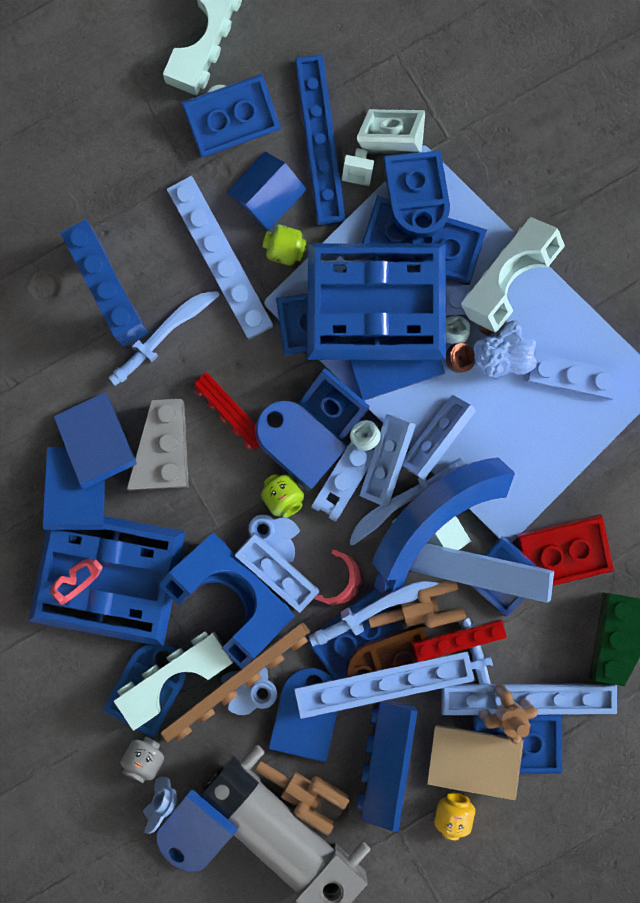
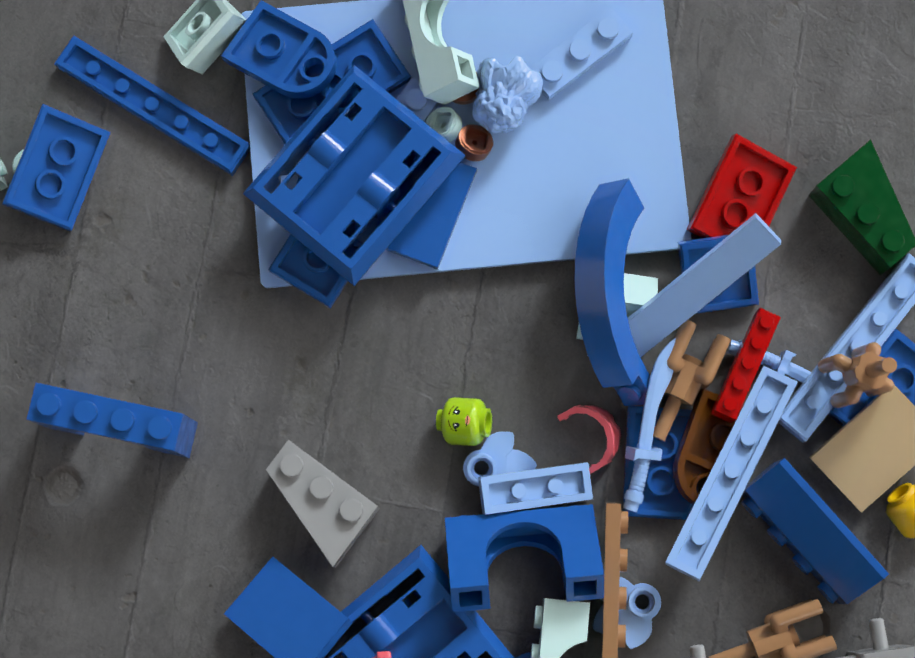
camera: 45 degrees left, 5 degrees down
(94, 440) = (257, 559): blue tile -> none
(182, 314) = (206, 372): light blue sword -> none
(220, 257) = (182, 292): light blue plate -> none
(228, 410) = (340, 405): red piece -> none
(267, 190) = (157, 193): blue slope -> none
(284, 245) = (223, 220): lime head -> none
(299, 444) = (427, 362): blue tile -> none
(305, 736) = (705, 603): blue tile -> none
(334, 404) = (418, 300): blue slope -> none
(343, 481) = (498, 348): light blue plate -> none
(358, 168) = (211, 91): light aqua tile -> none
(365, 435) = (473, 293): light aqua tile -> none
(381, 513) = (560, 345): light blue sword -> none
(387, 460) = (514, 291): light blue plate -> none
(438, 436) = (532, 225): light blue plate -> none

